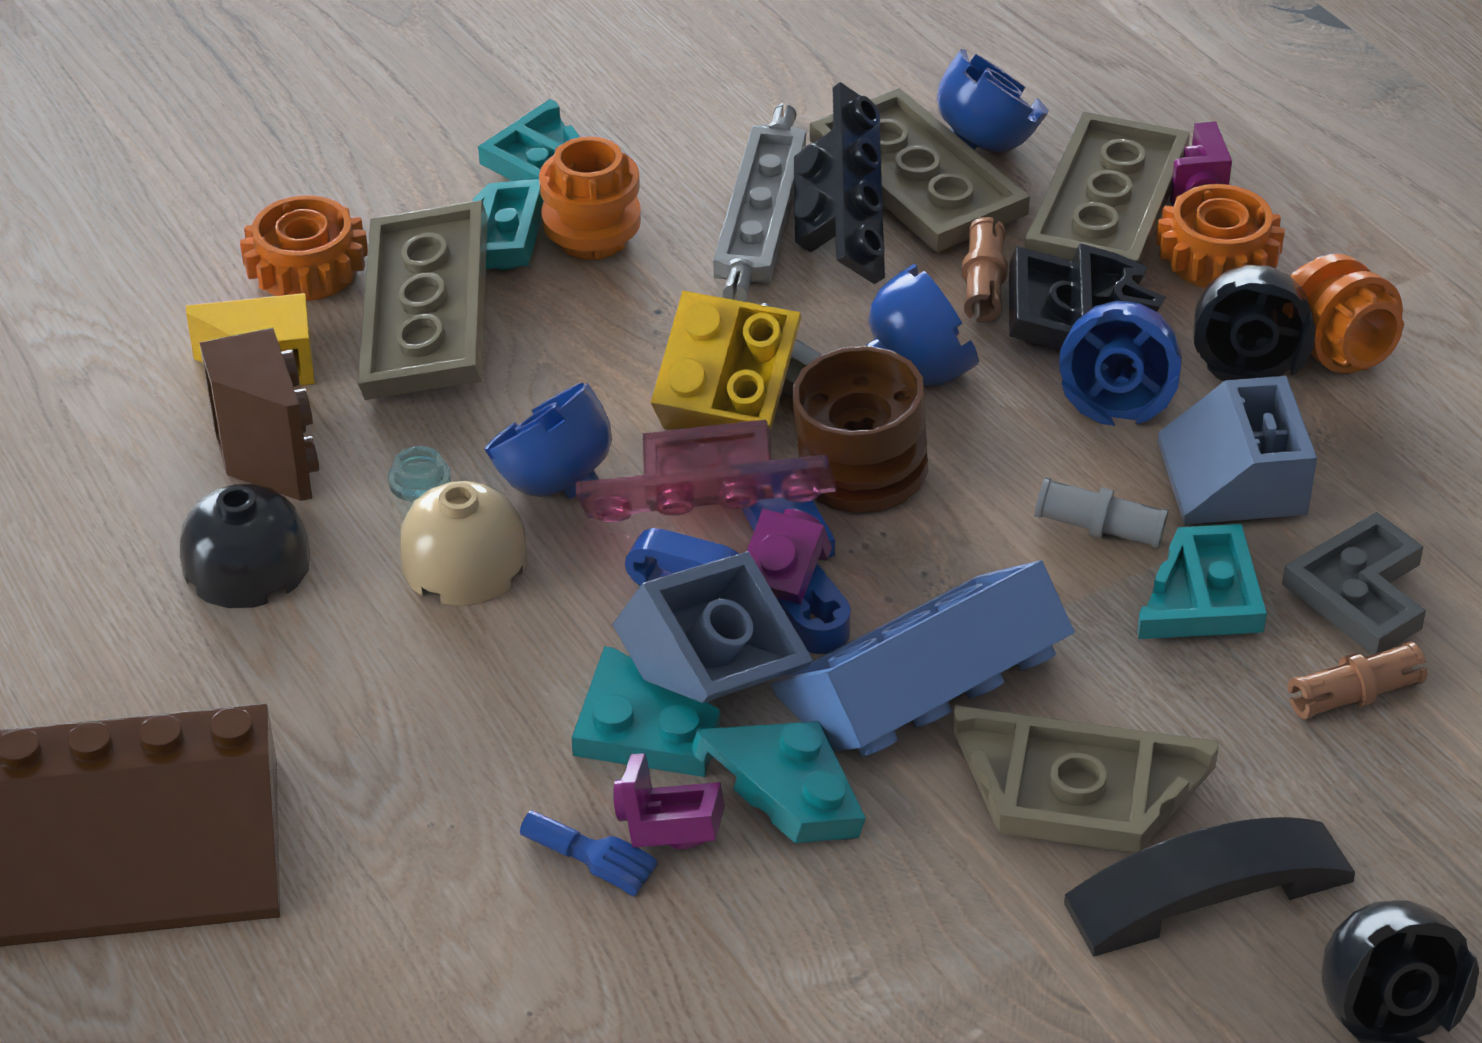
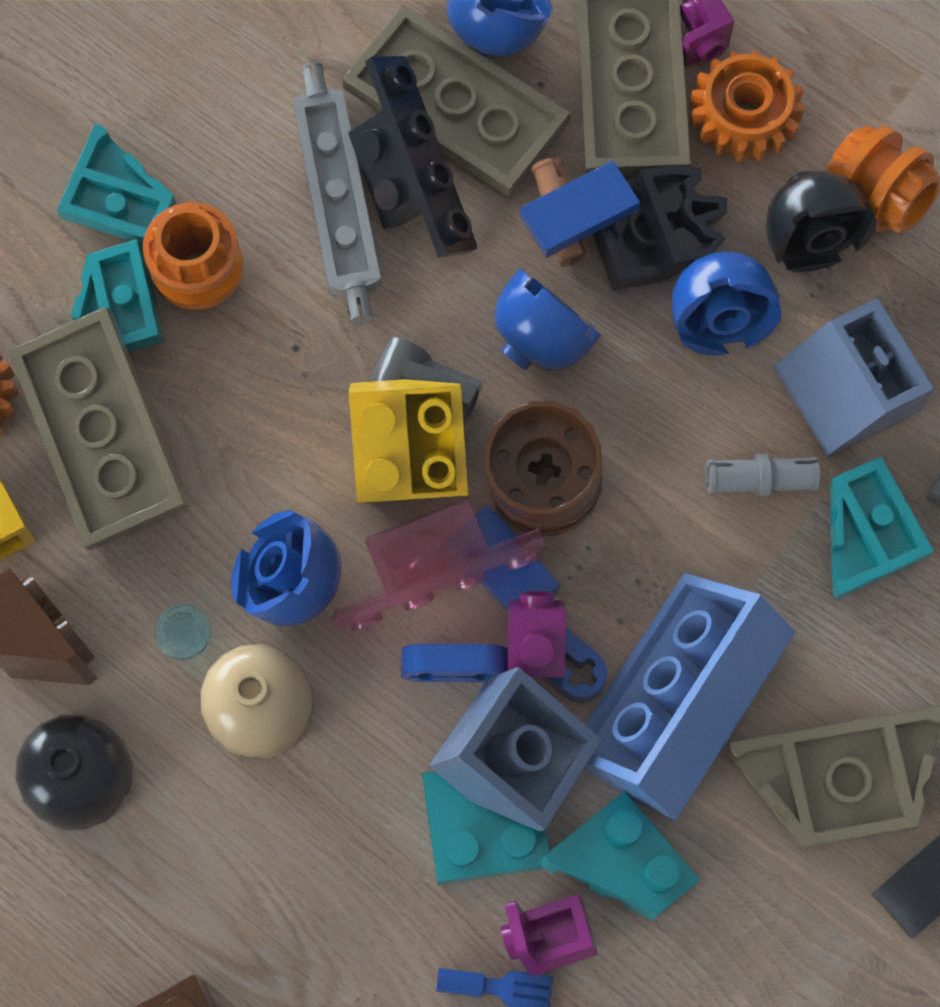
camera: 20 degrees left, 30 degrees up
(1000, 252) = (579, 208): none -> blue tile

